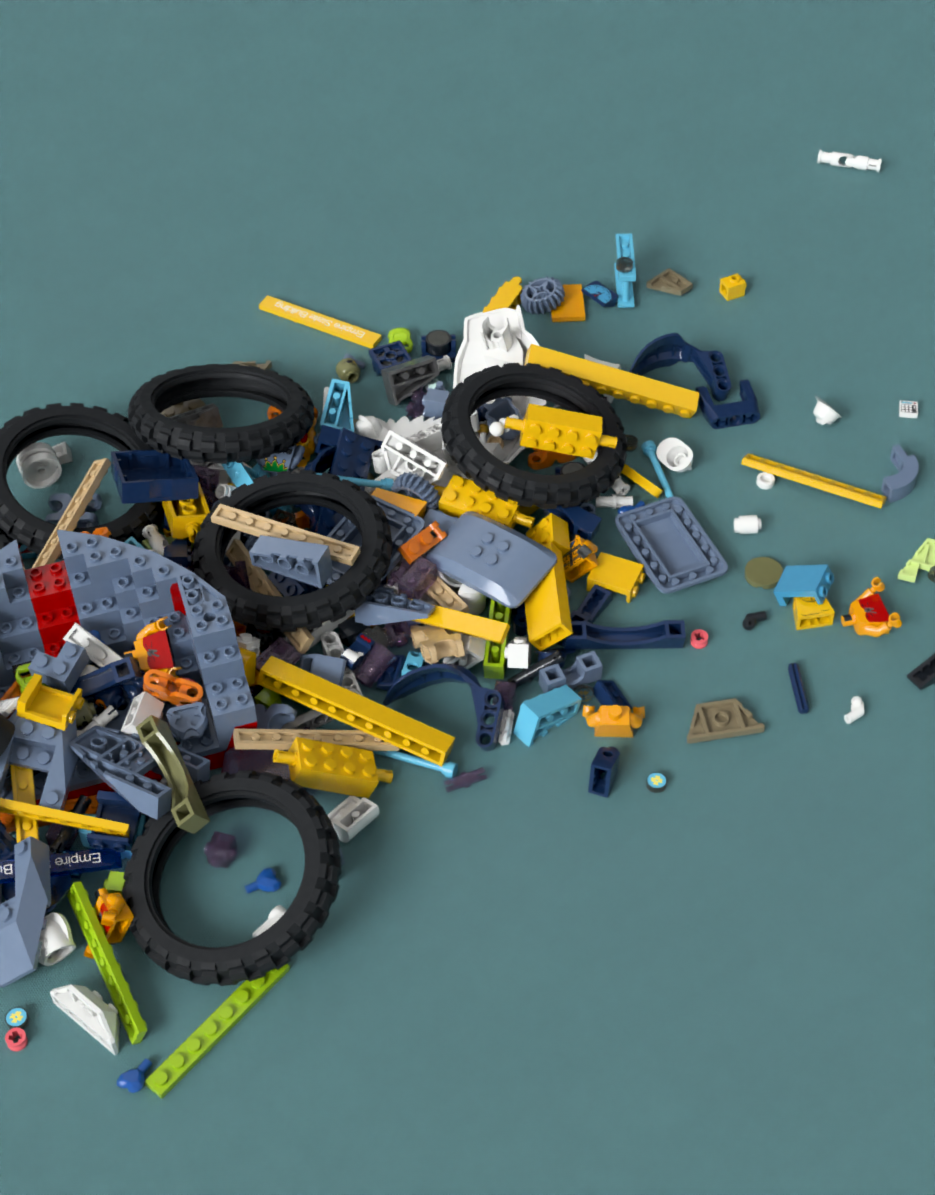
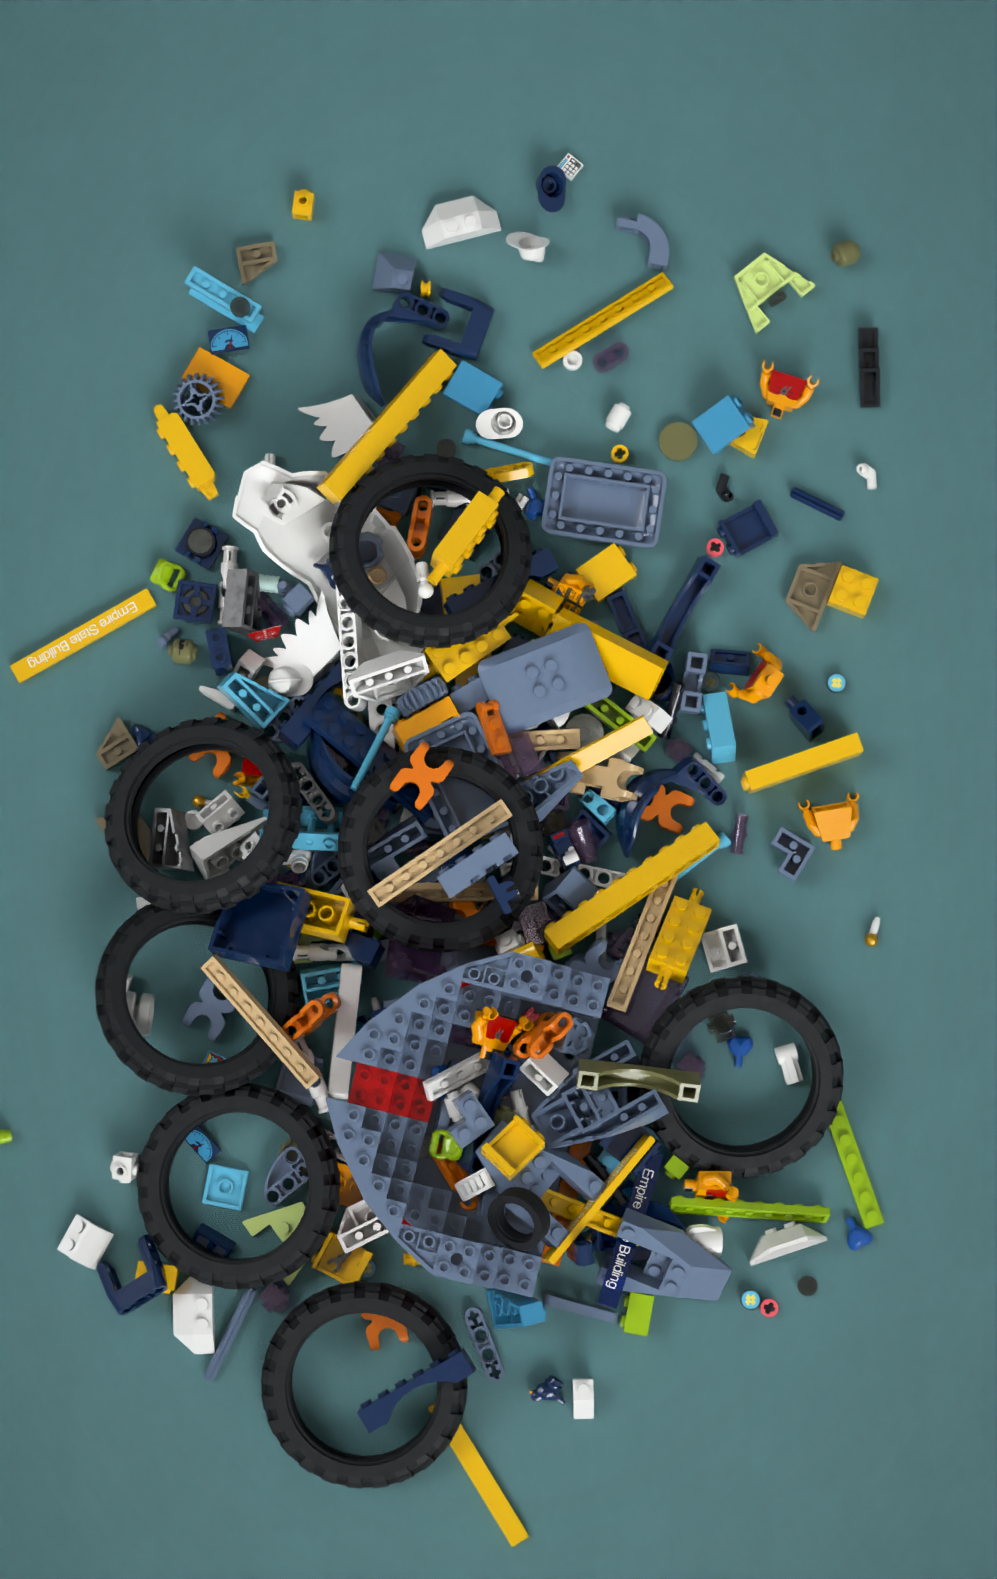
camera: 60 degrees left, 35 degrees up
(57, 1062) = (807, 1285): none -> clear smoke tile
(276, 851) = (722, 1026): none -> clear smoke brick
(277, 583) = (504, 892): none -> dark blue piece
(342, 491) = (421, 775): none -> orange piece
(364, 382) = (220, 650): none -> dark blue panel
(364, 405) = (249, 665): none -> white slope
(396, 404) = (265, 634): none -> red sticker
(441, 932) = (871, 938): none -> piece
(448, 709) = (662, 806): none -> orange piece
(473, 826) = (796, 852): none -> sand blue brick
(530, 839) = (832, 821): none -> light orange torso
(563, 785) = (802, 763): none -> yellow brick
(689, 428) = (473, 388): none -> dark azure panel
(720, 537) = (624, 457): none -> yellow bush
(732, 651) = (747, 529): none -> dark blue panel
(735, 356) = (394, 273): none -> sand blue slope
(737, 374) = (425, 289): none -> yellow bush
(745, 747) = (852, 591): none -> yellow brick
(789, 498) = (609, 356): none -> clear purple plate
(805, 370) = (459, 221): none -> white wedge
(880, 399) = (551, 188): none -> dark blue piece

